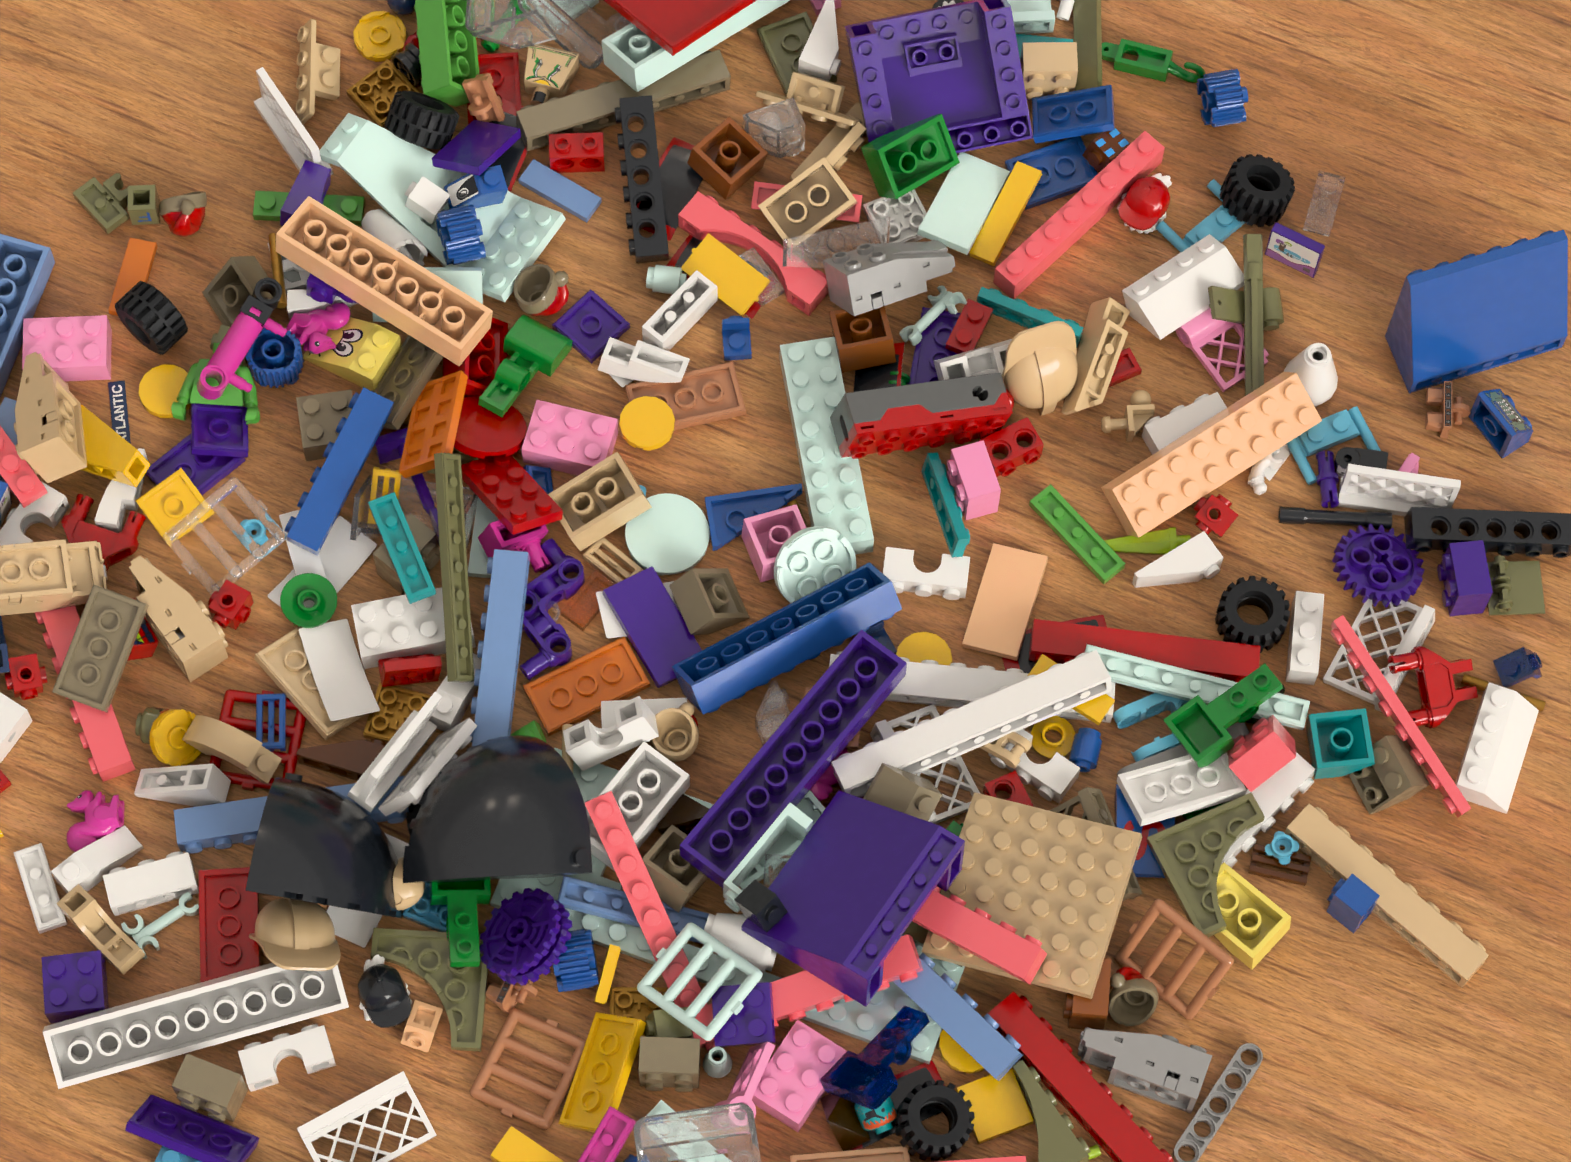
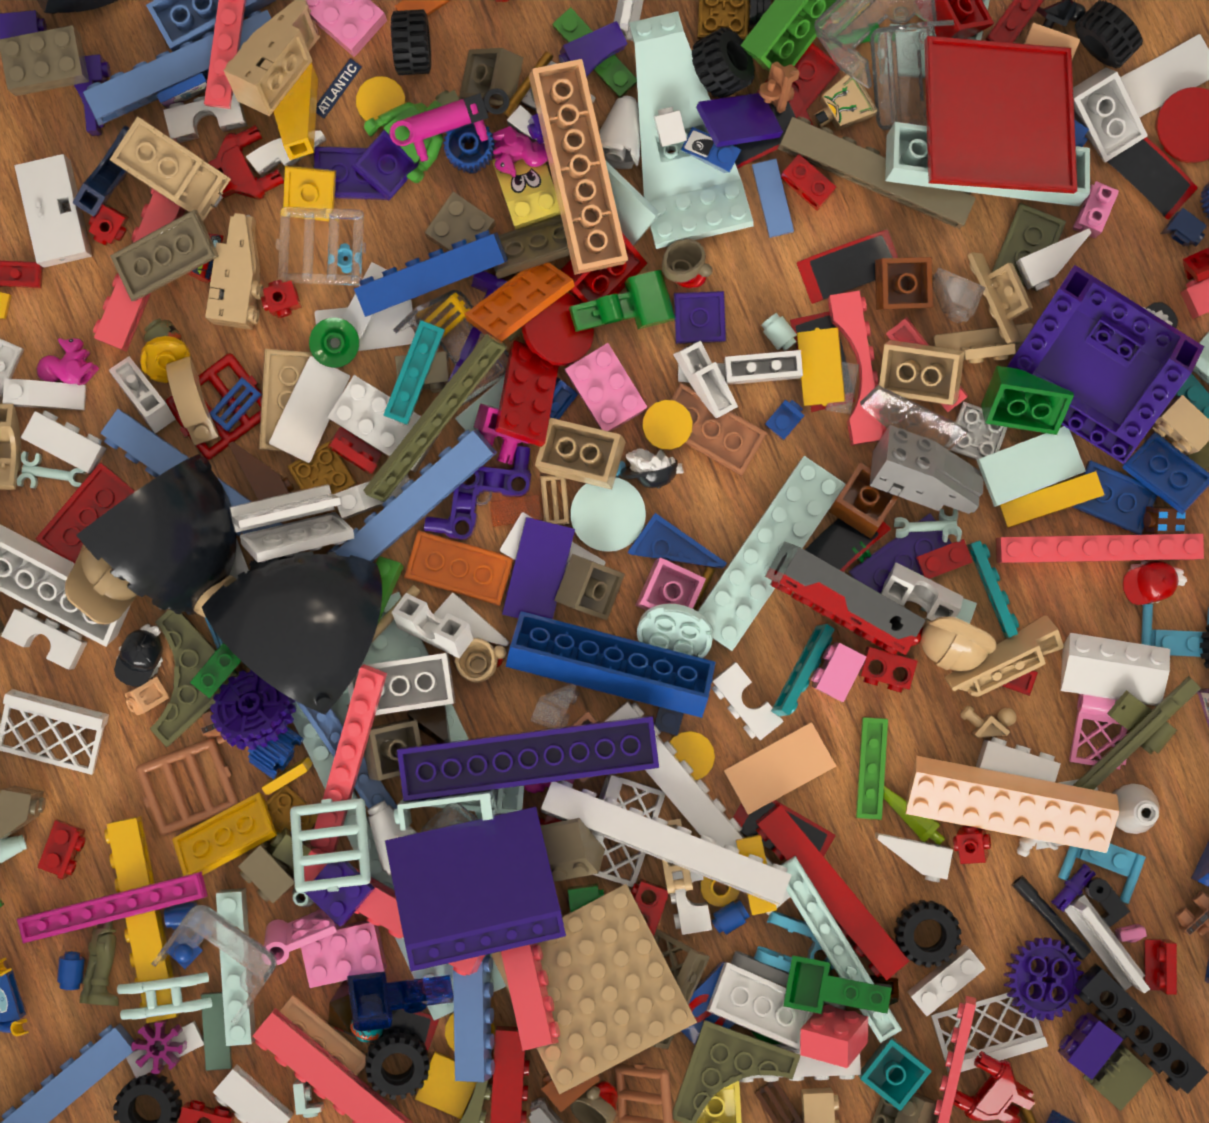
camera: 45 degrees right, 20 degrees up
(460, 235) = (667, 176): blue brick -> none
(641, 110) = (794, 302): black brick -> none
(669, 466) = (651, 469): none -> hair
(760, 905) = (403, 845): black brick -> none
(1285, 840) = (792, 1107): medium azure plate -> none
(1454, 464) = (1161, 965): none -> red bracket

